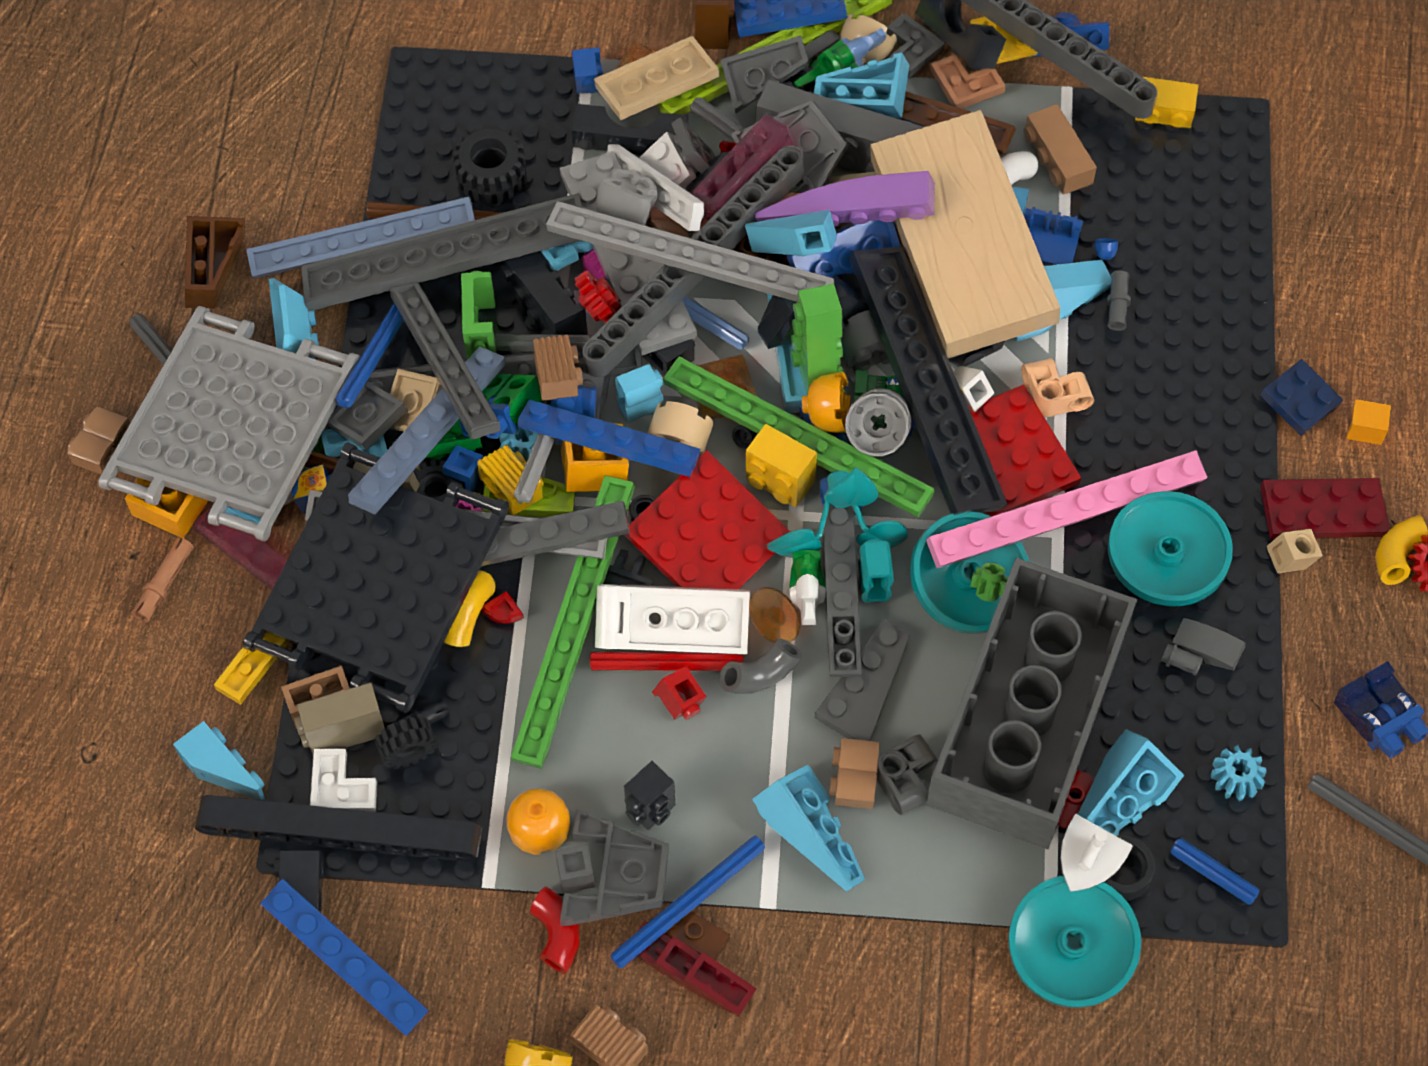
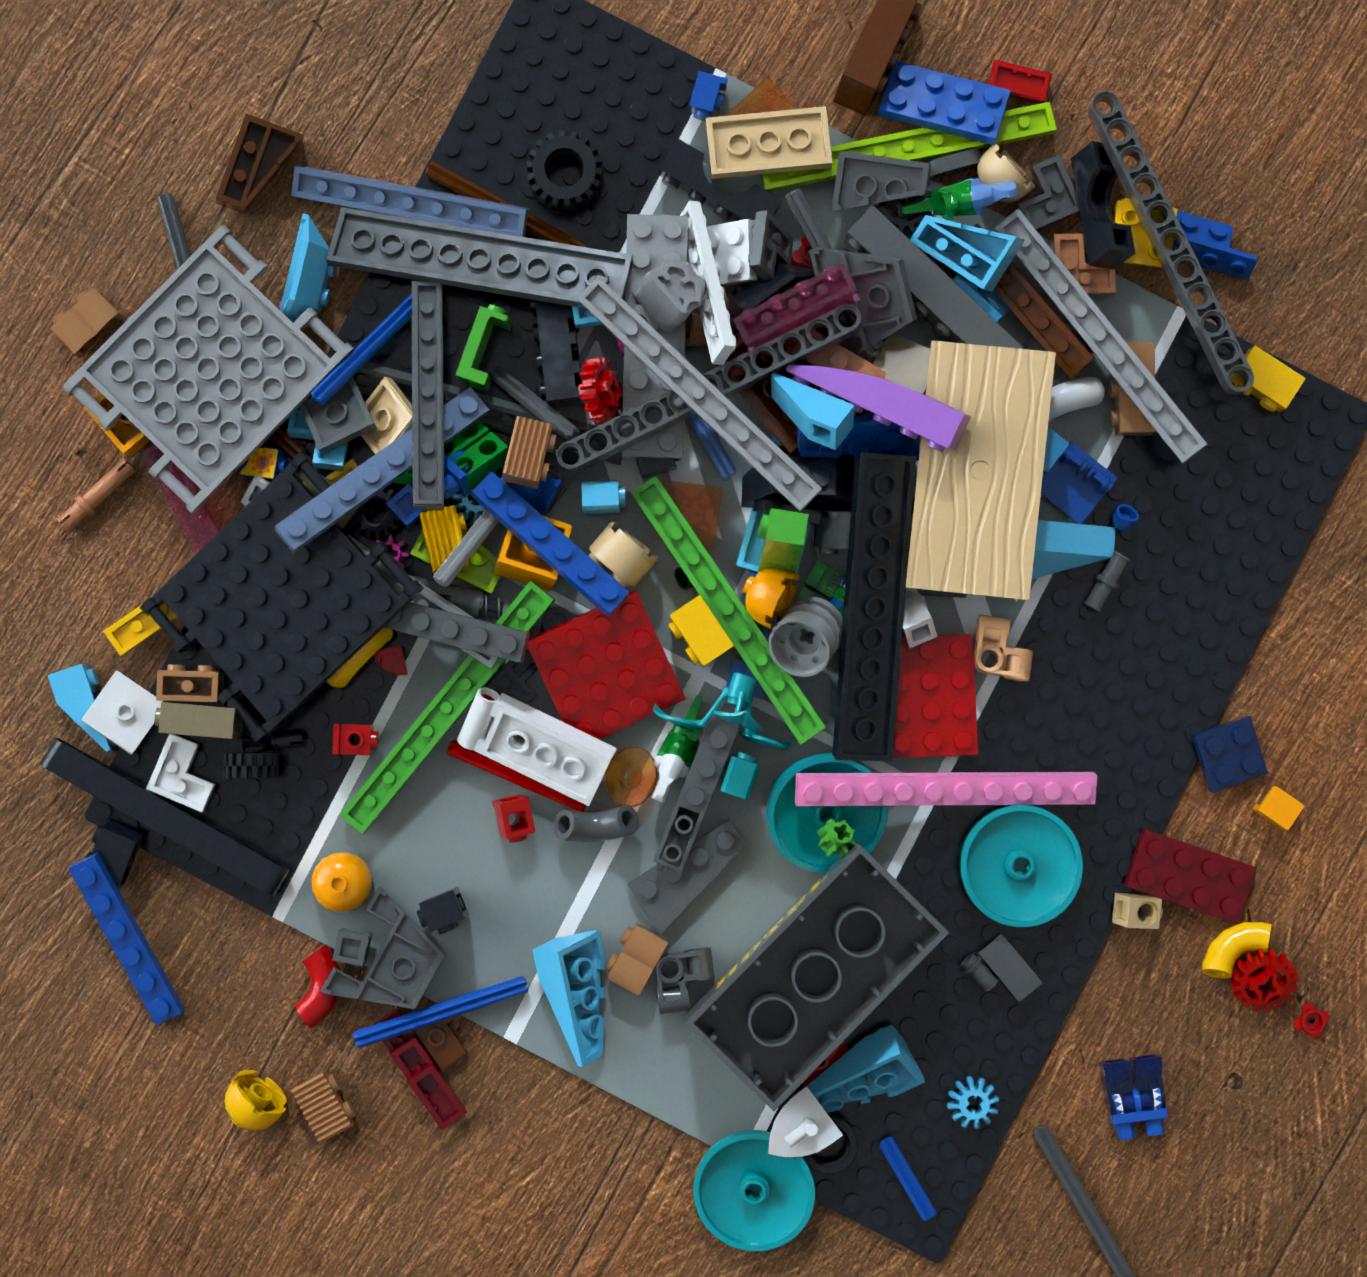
camera: 20 degrees right, 25 degrees up
(261, 748) = (122, 712): none -> white plate
(496, 696) = (342, 743): none -> red brick
(1025, 117) = (1103, 339): none -> light grey plate

